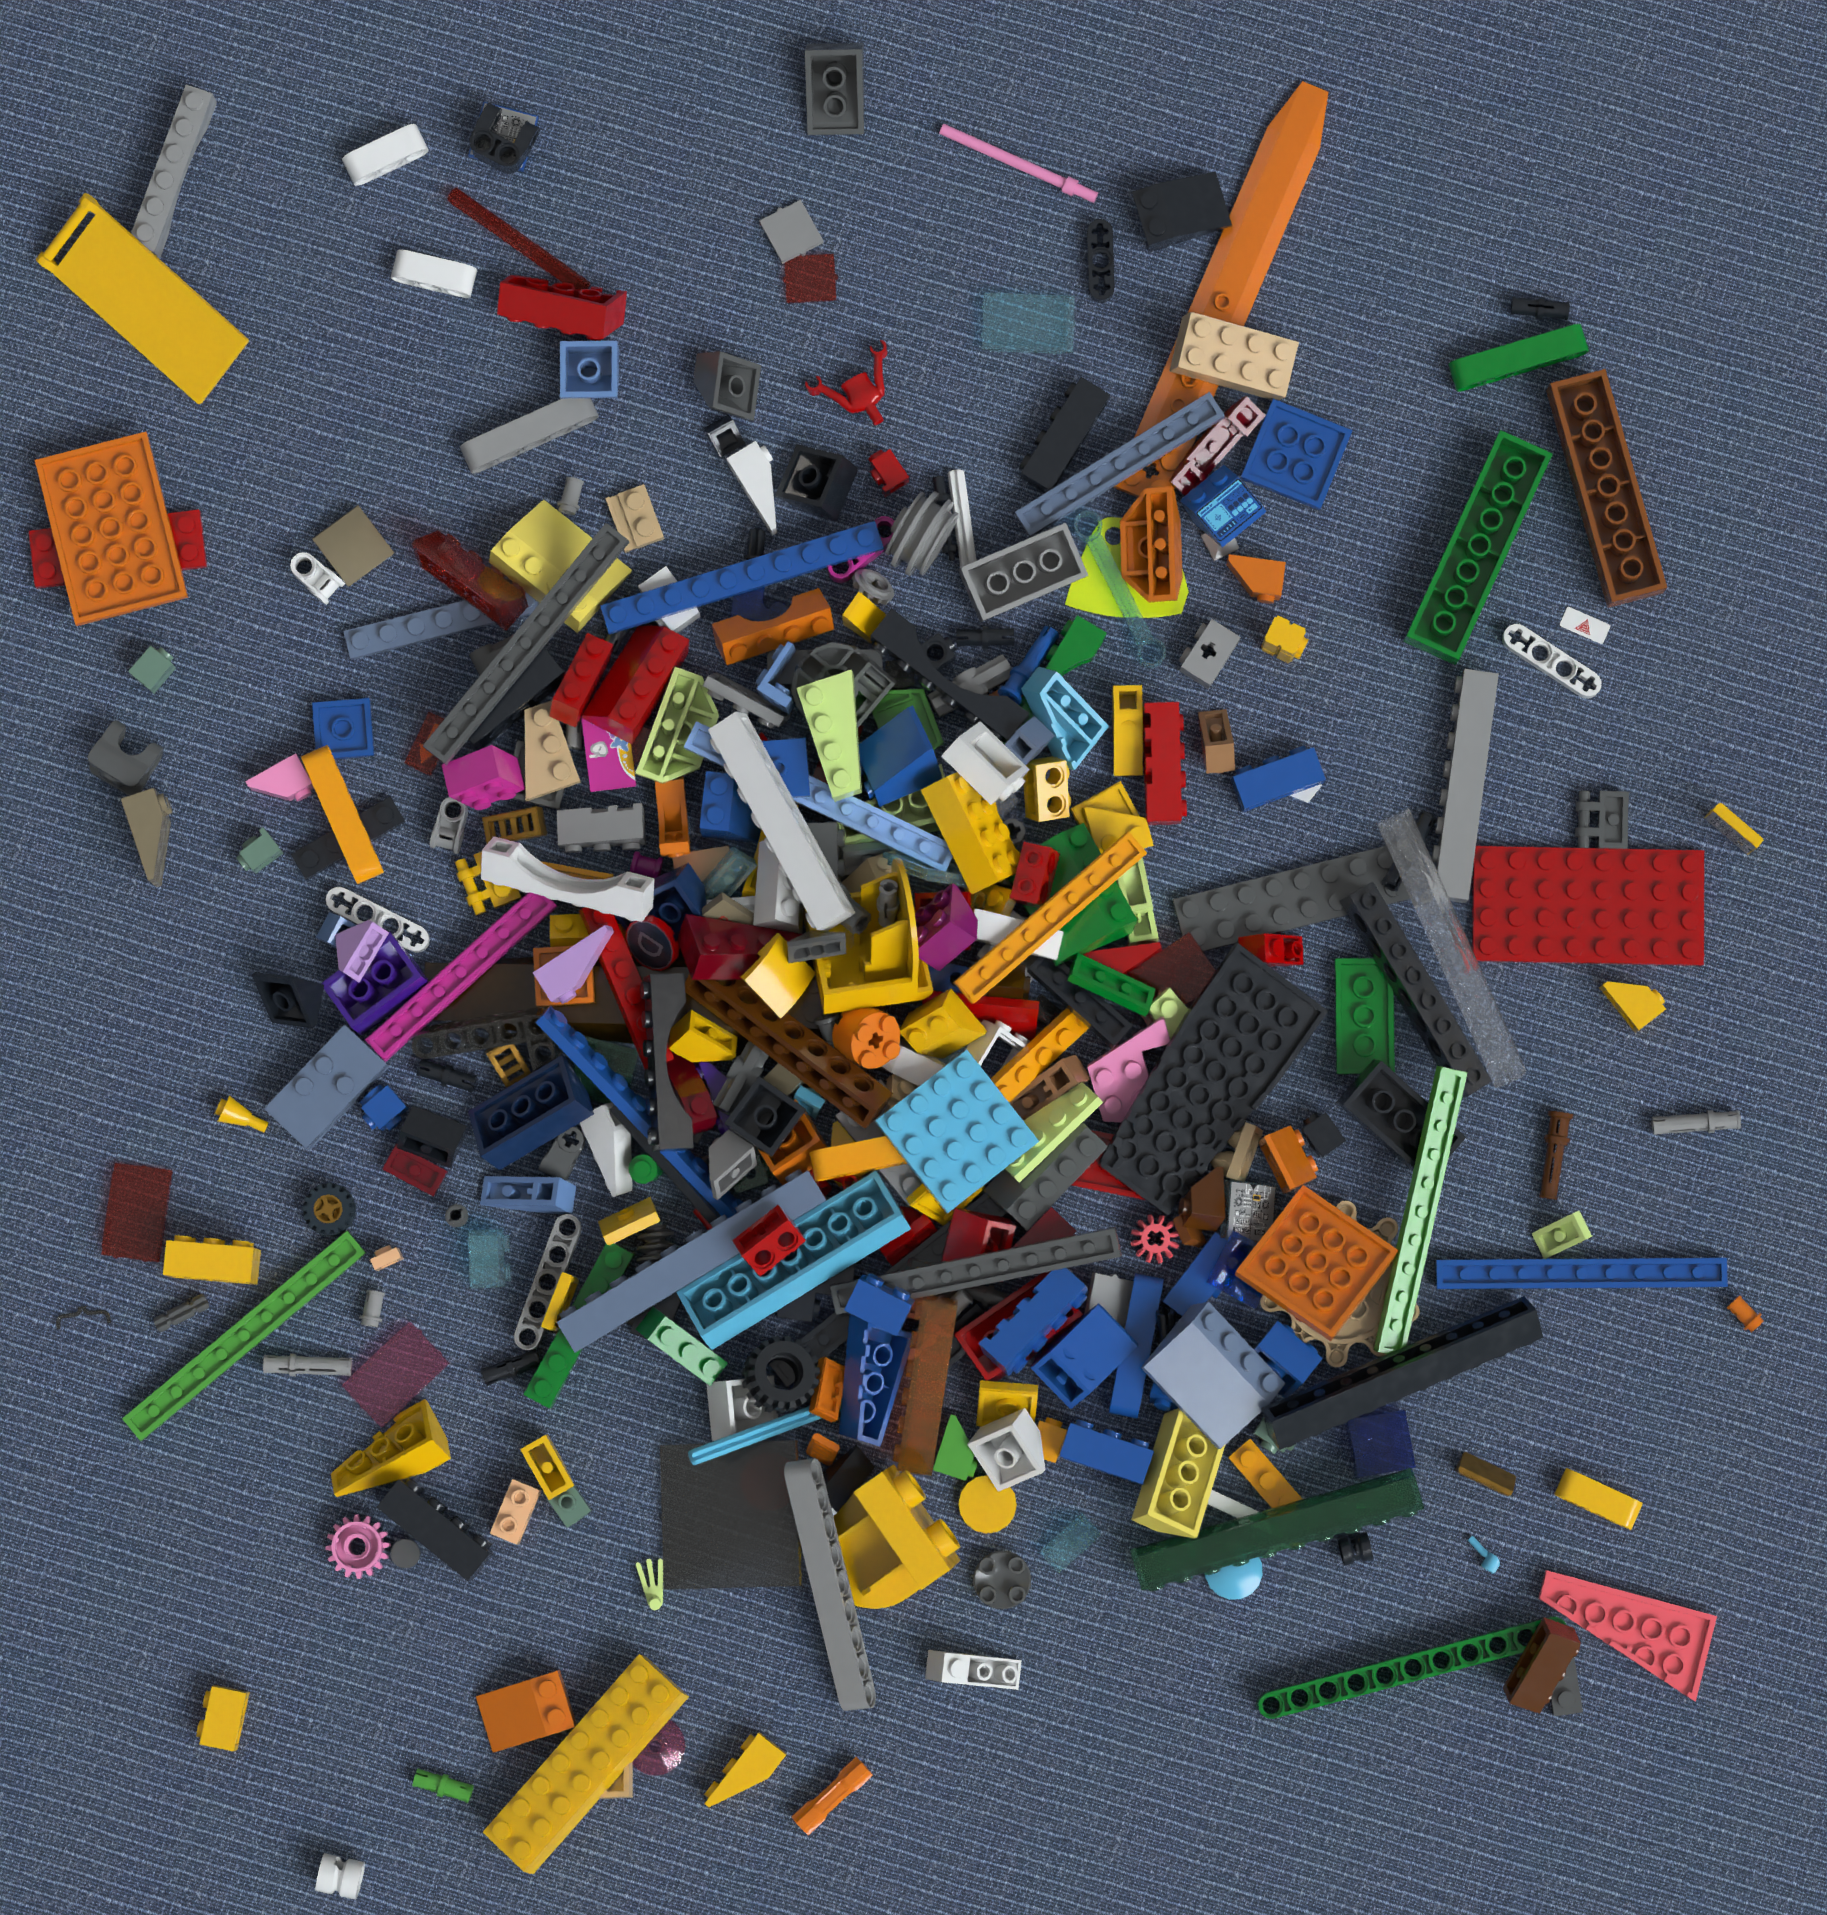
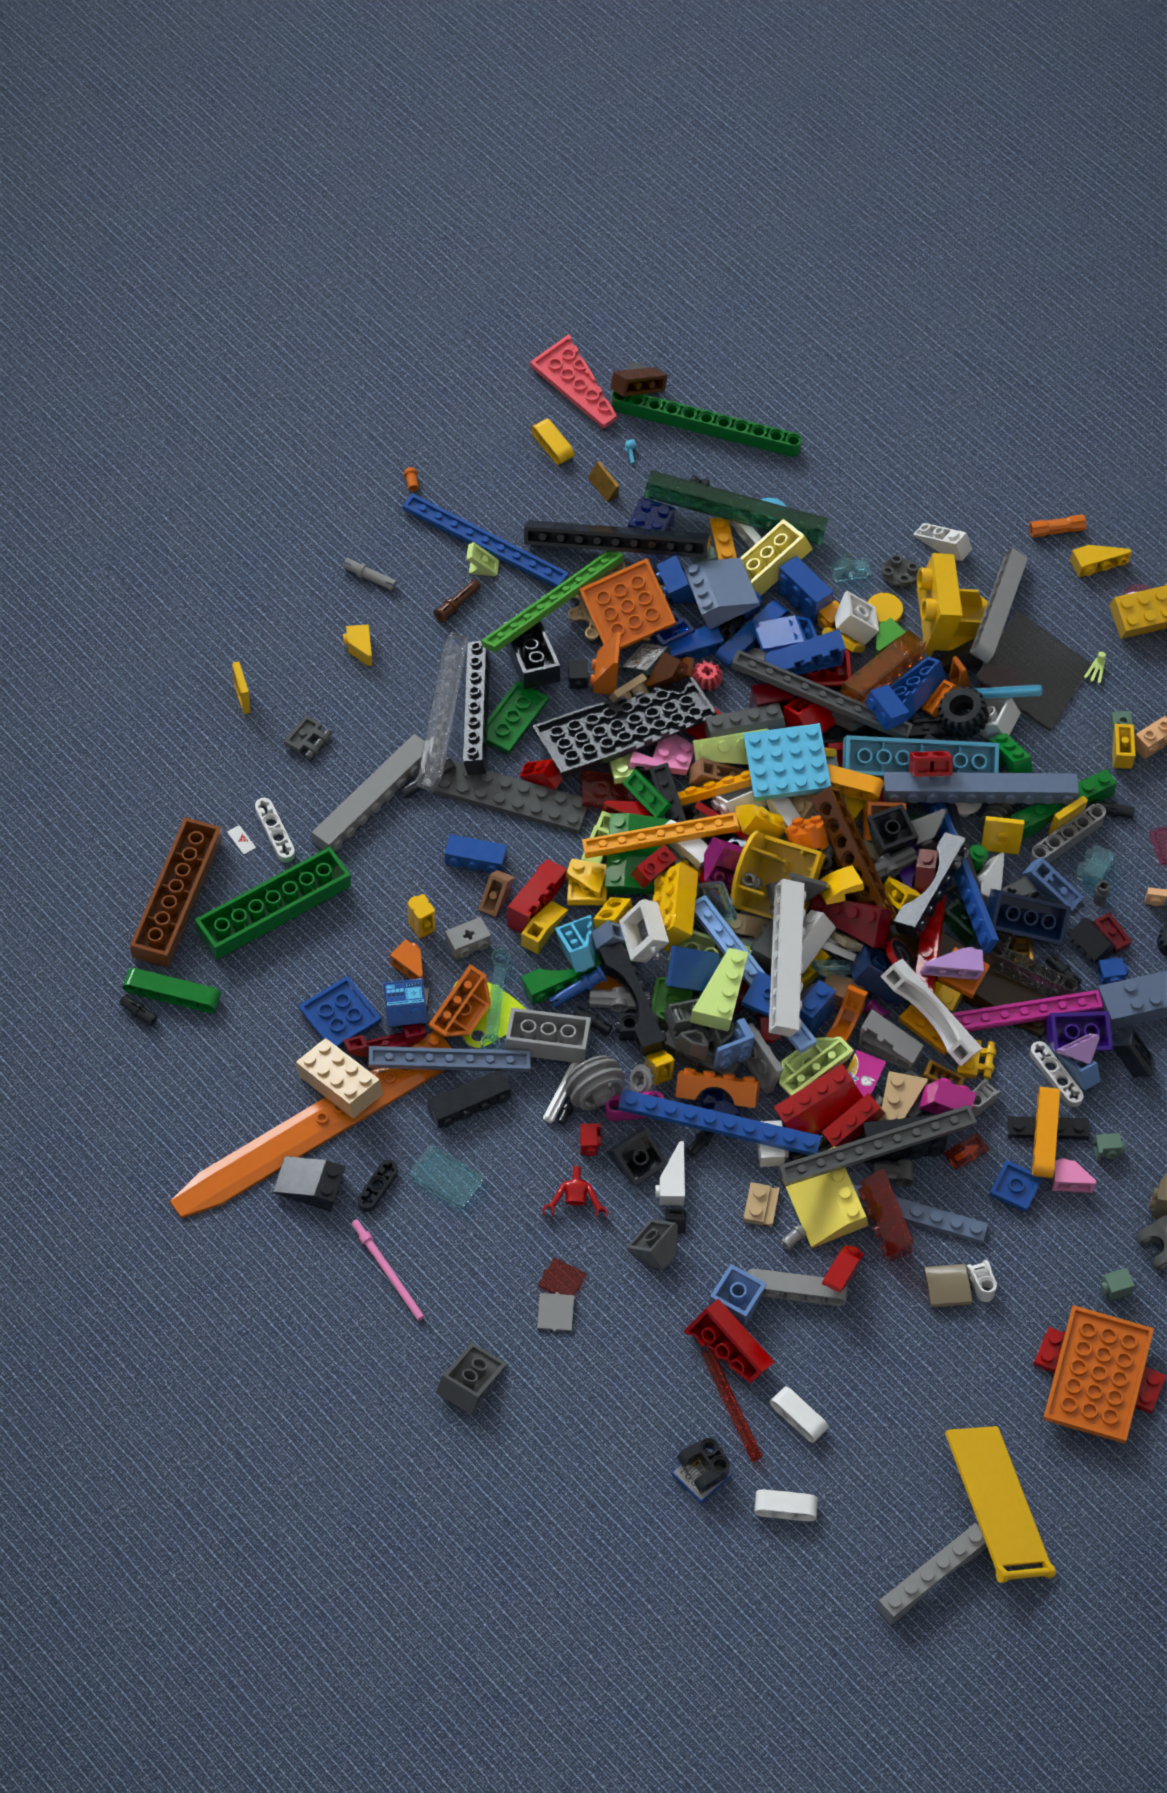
camera: 150 degrees left, 25 degrees down
(481, 470) = (843, 1268): none -> red slope
(1588, 906) = (347, 703): red plate -> none

